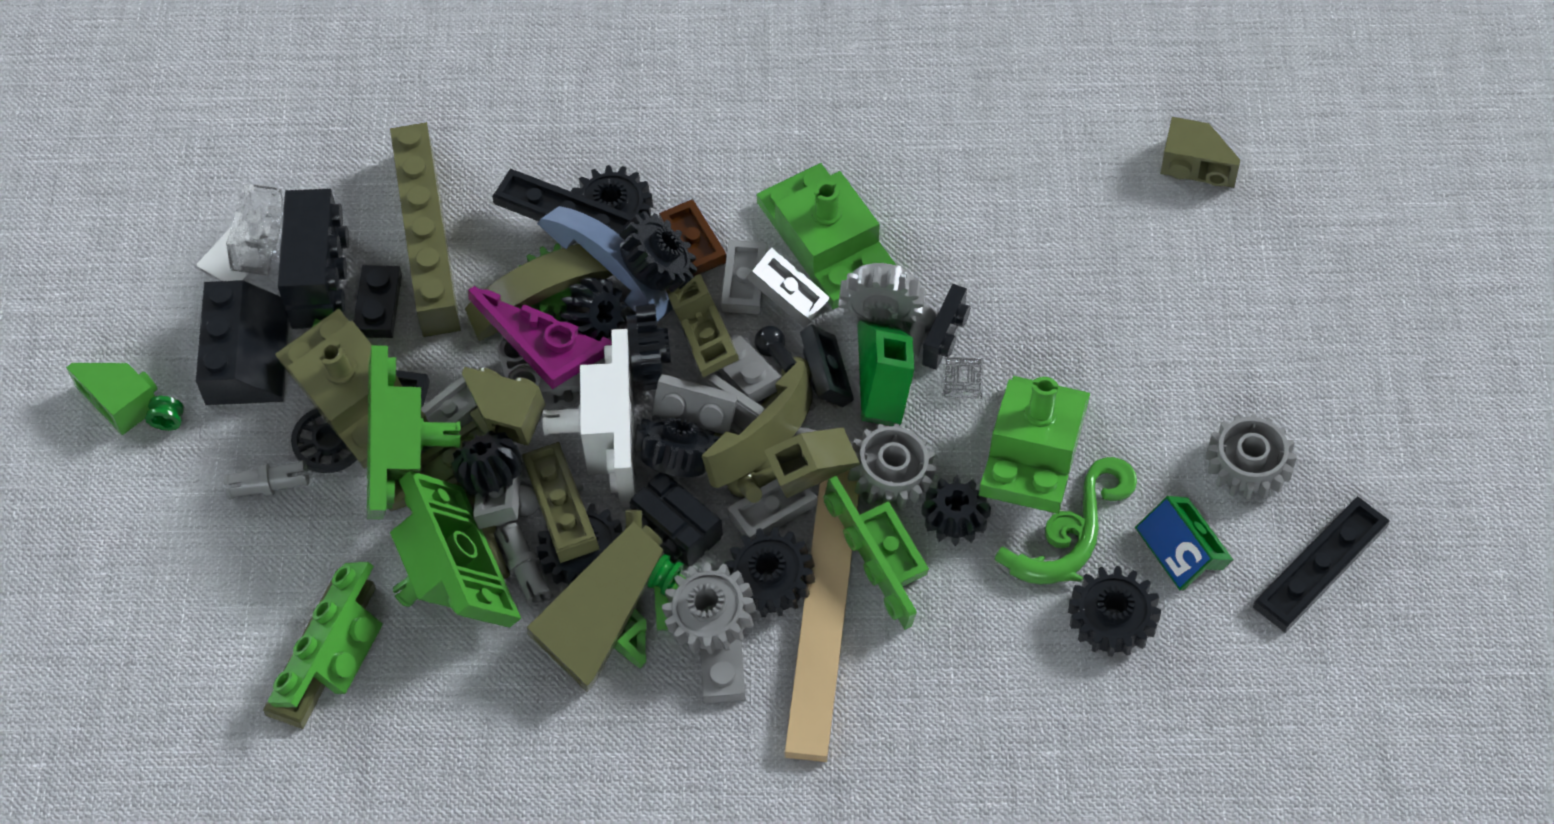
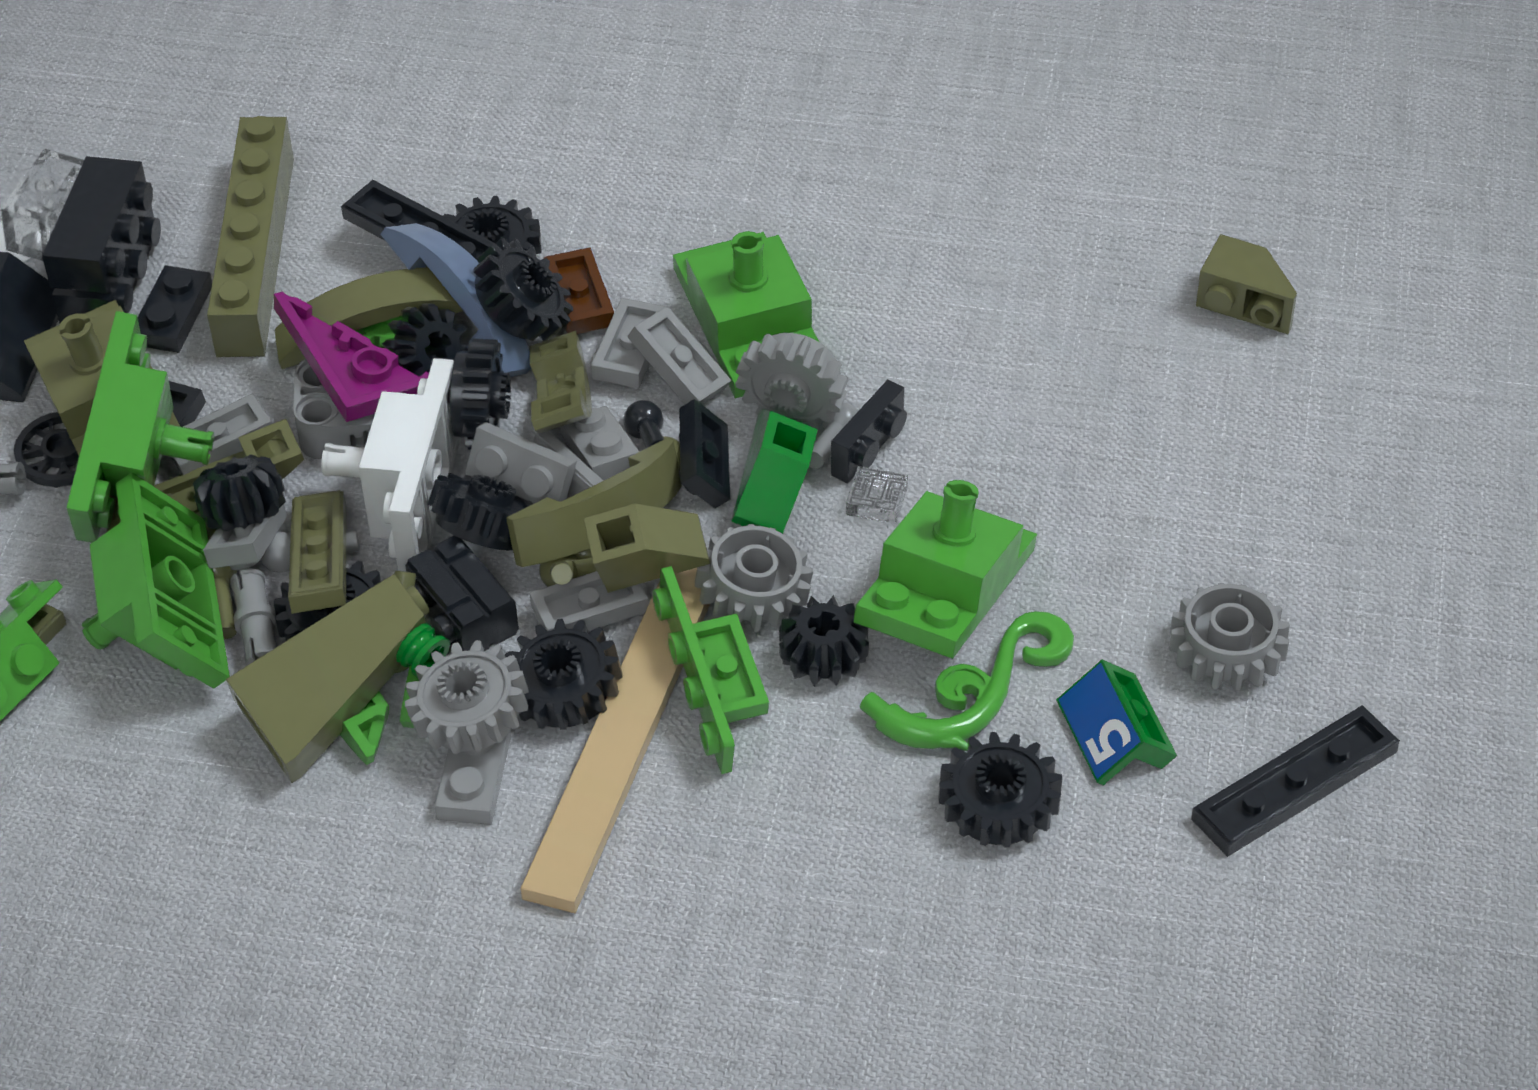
camera: 10 degrees right, 10 degrees down
(506, 403) = (282, 426): olive slope -> none

